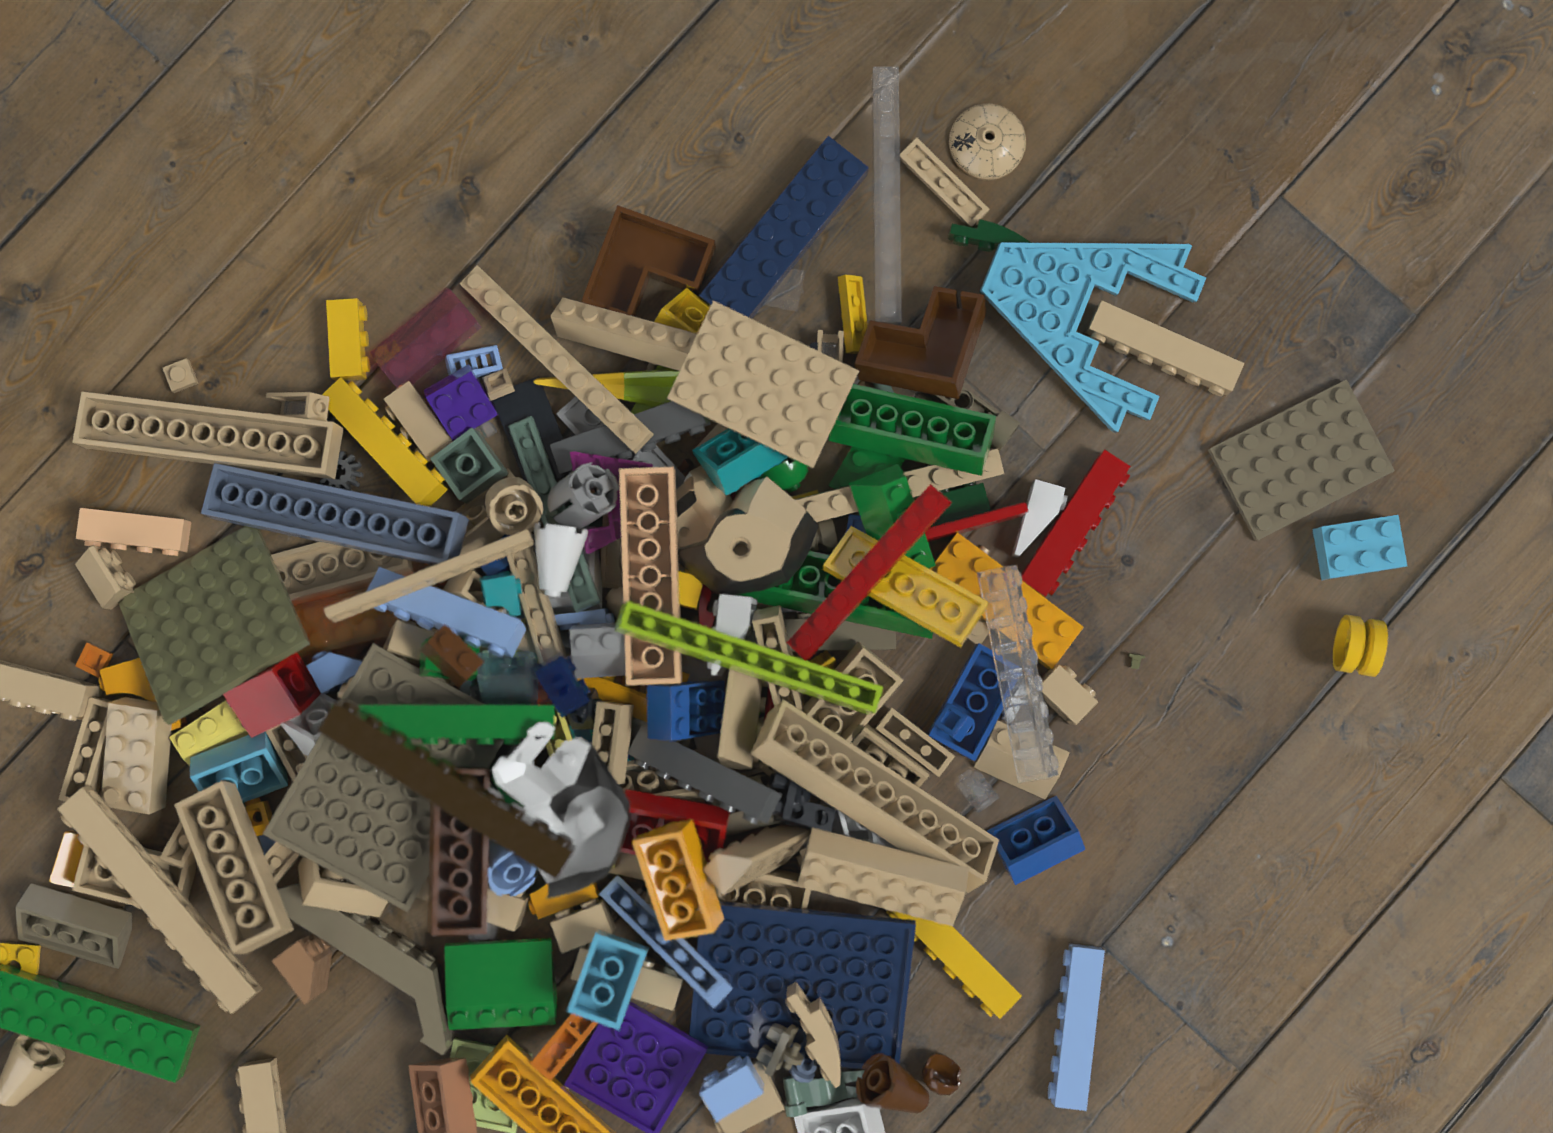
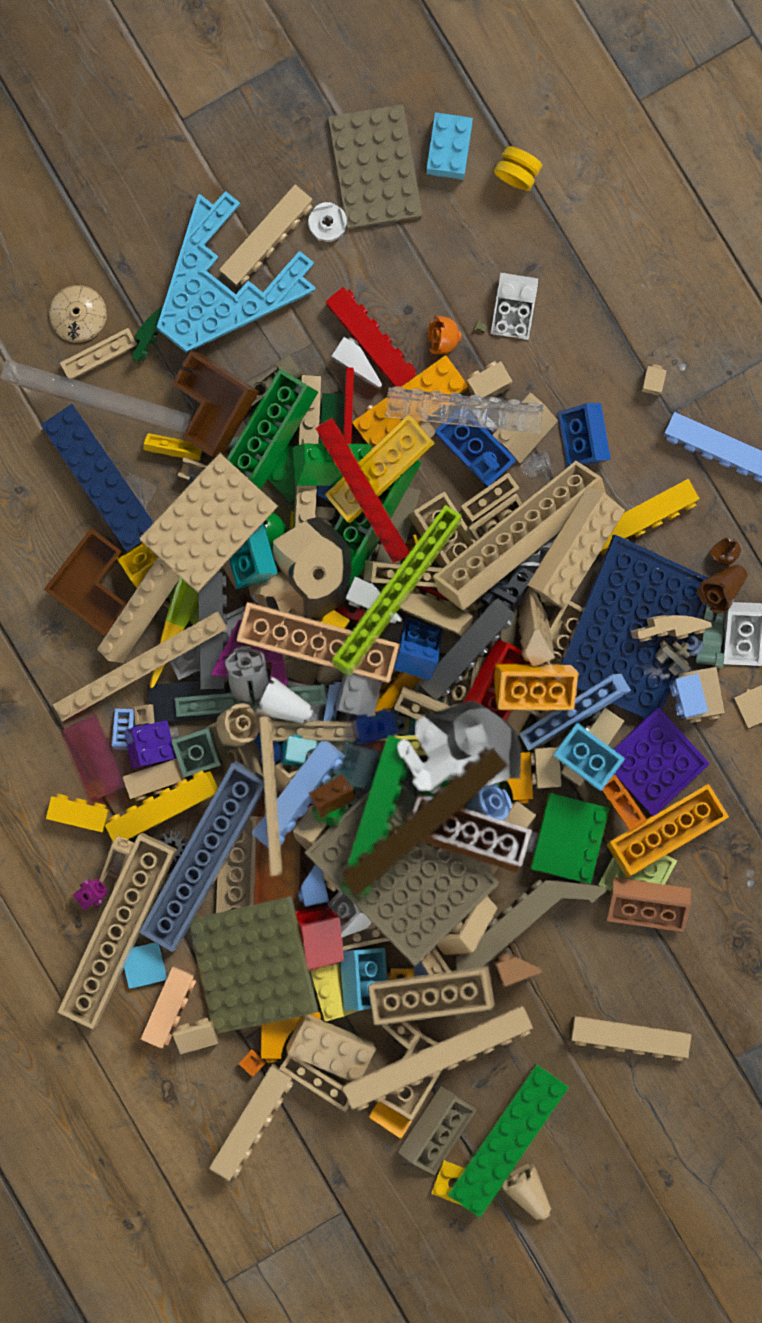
camera: 70 degrees left, 0 degrees up
(178, 485) = (145, 965): none -> medium azure tile
(180, 375) = (65, 942): tan plate -> none
(248, 387) = (90, 893): none -> magenta brick
(1108, 616) = (443, 334): none -> orange cylinder
(1138, 910) = (654, 380): none -> tan brick
(1177, 696) = (514, 306): none -> white slope
(1193, 418) = (333, 213): none -> white plate

